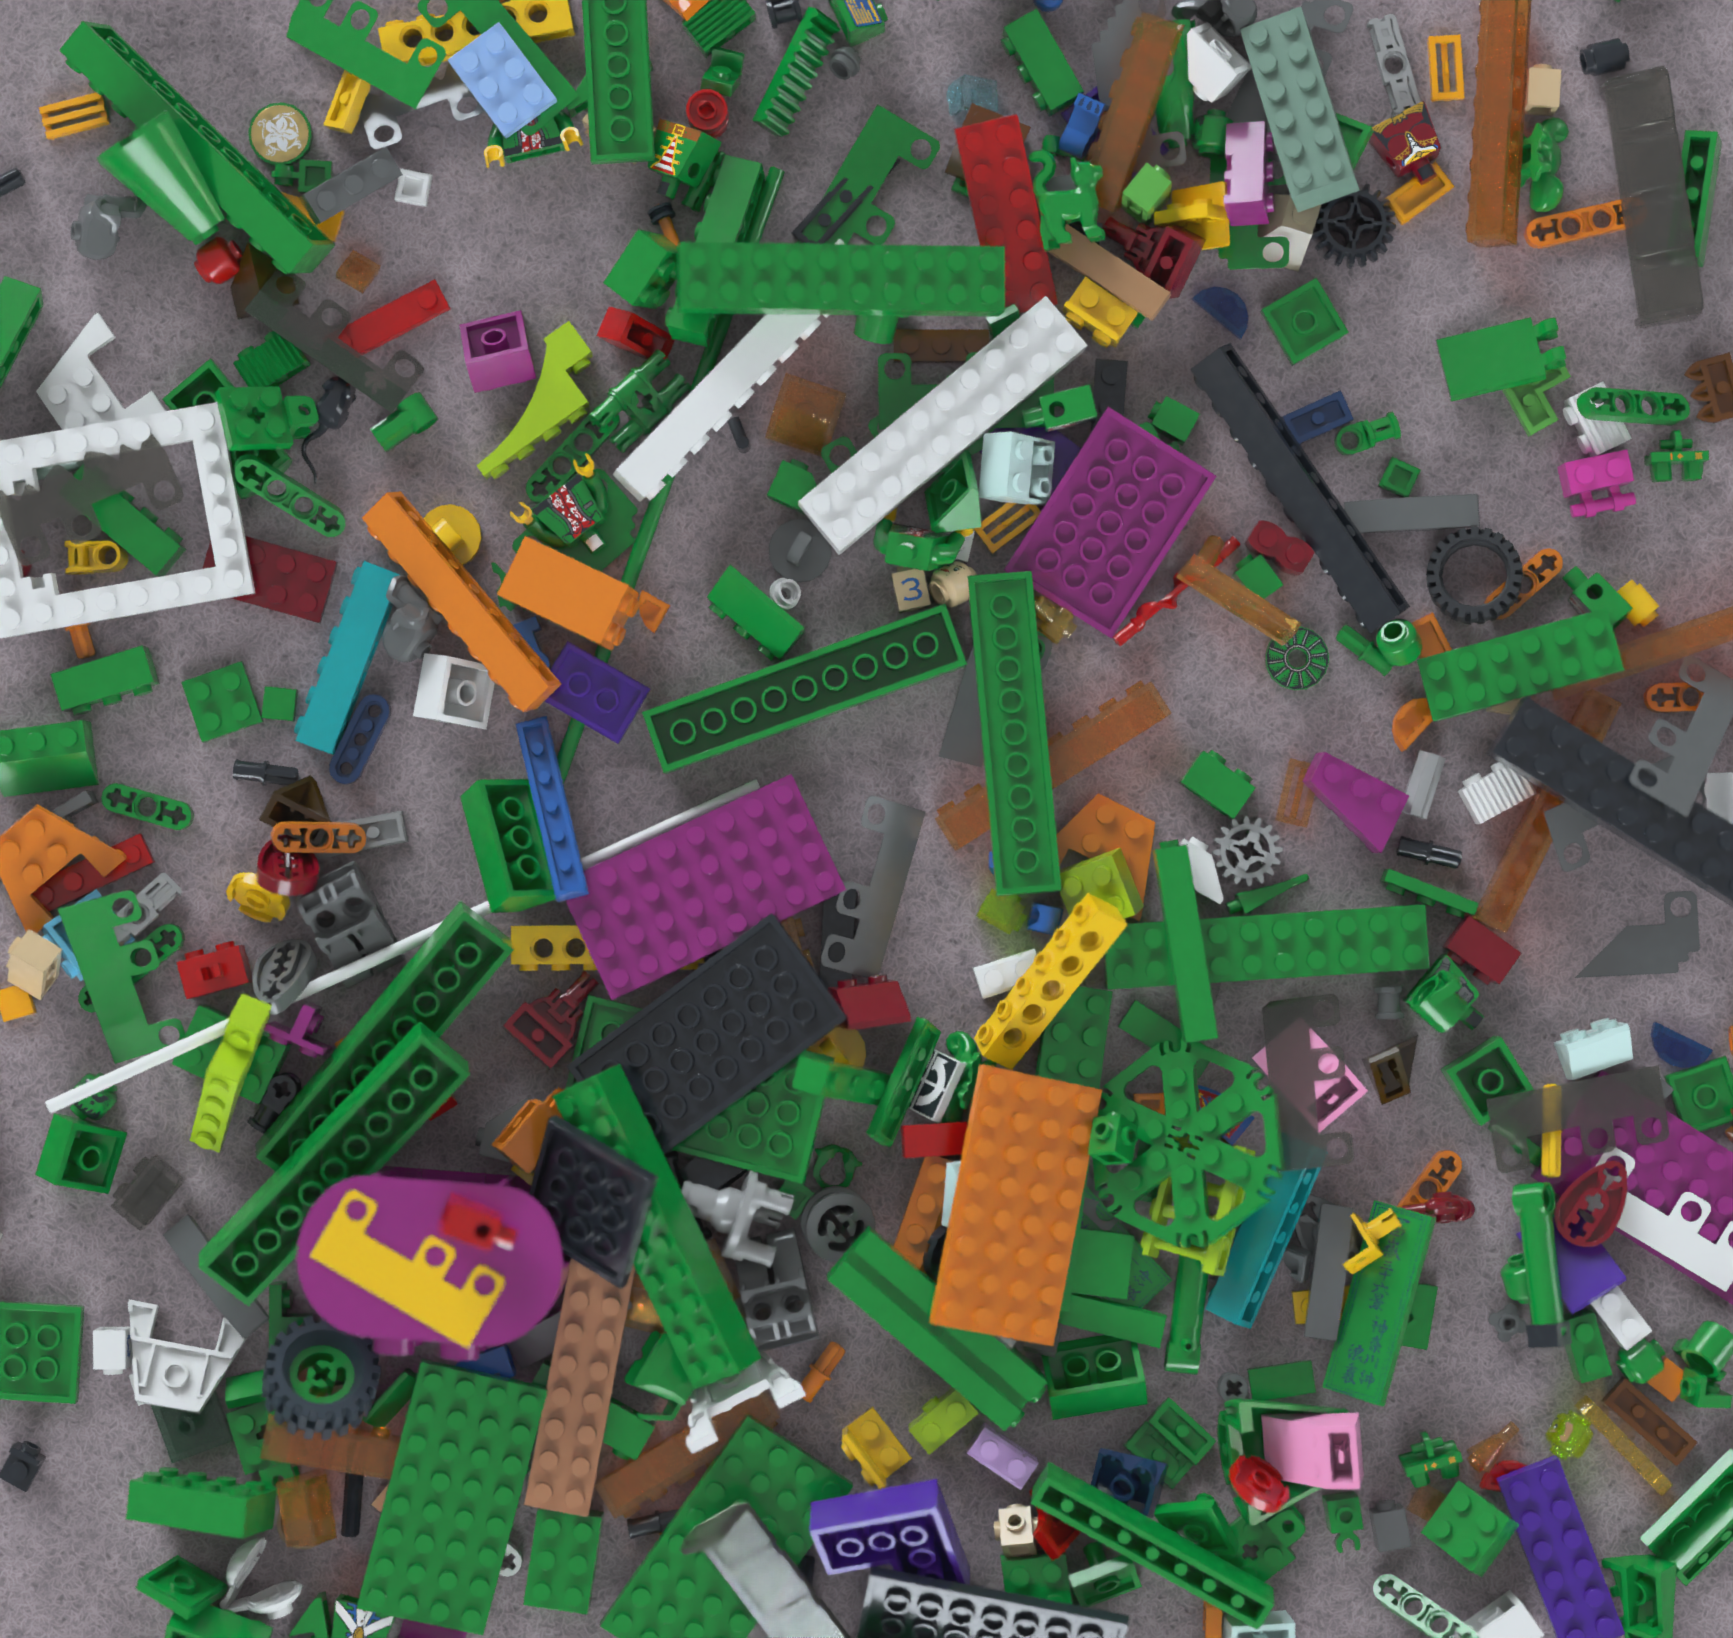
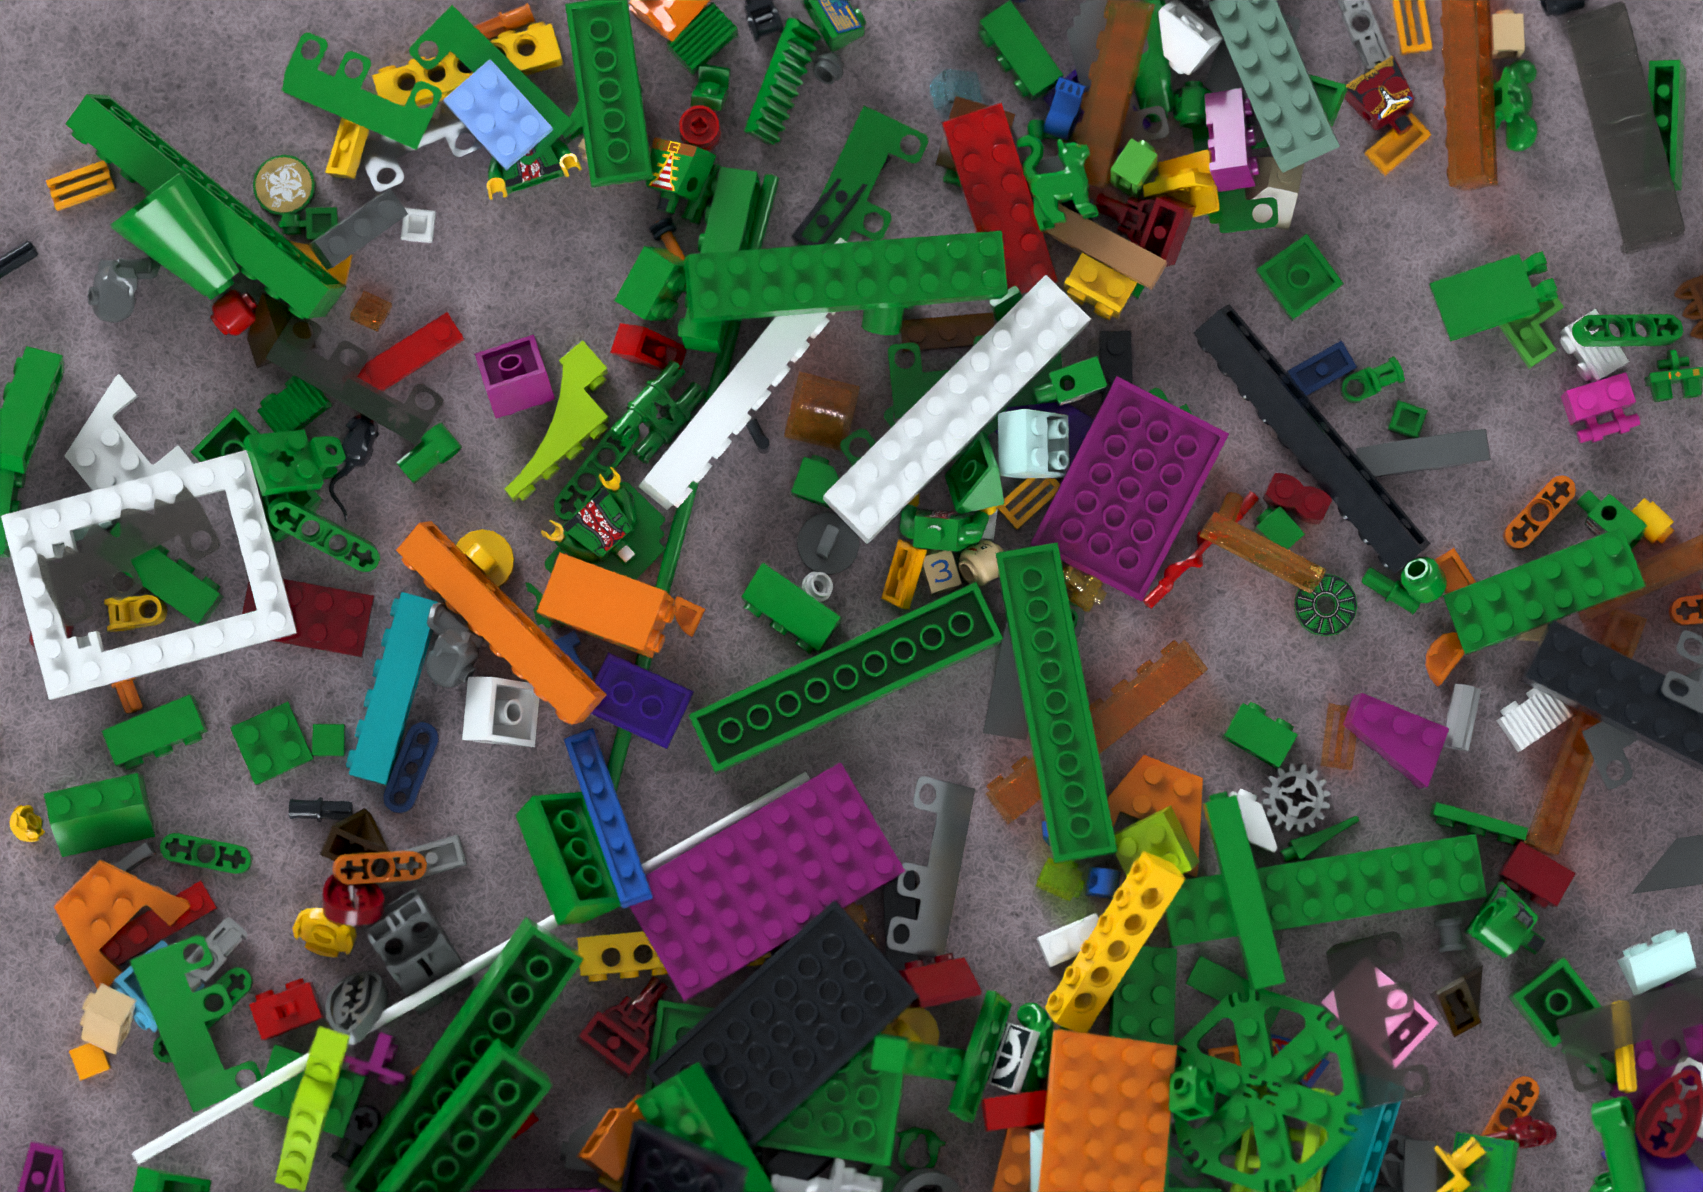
camera: 10 degrees left, 5 degrees down
(97, 1104) = (178, 1154): green head -> none
(874, 591) = (903, 576): none -> light orange tile
(1173, 420) = (1181, 383): green brick -> none
(1225, 308) = (1220, 270): clear blue plate -> none
(1366, 224) = (1350, 179): black gear -> none
(1429, 852) = (1474, 783): black axle -> none
(1466, 538) = (1478, 473): black tyre -> none
(1585, 223) = (1561, 155): orange beam -> none

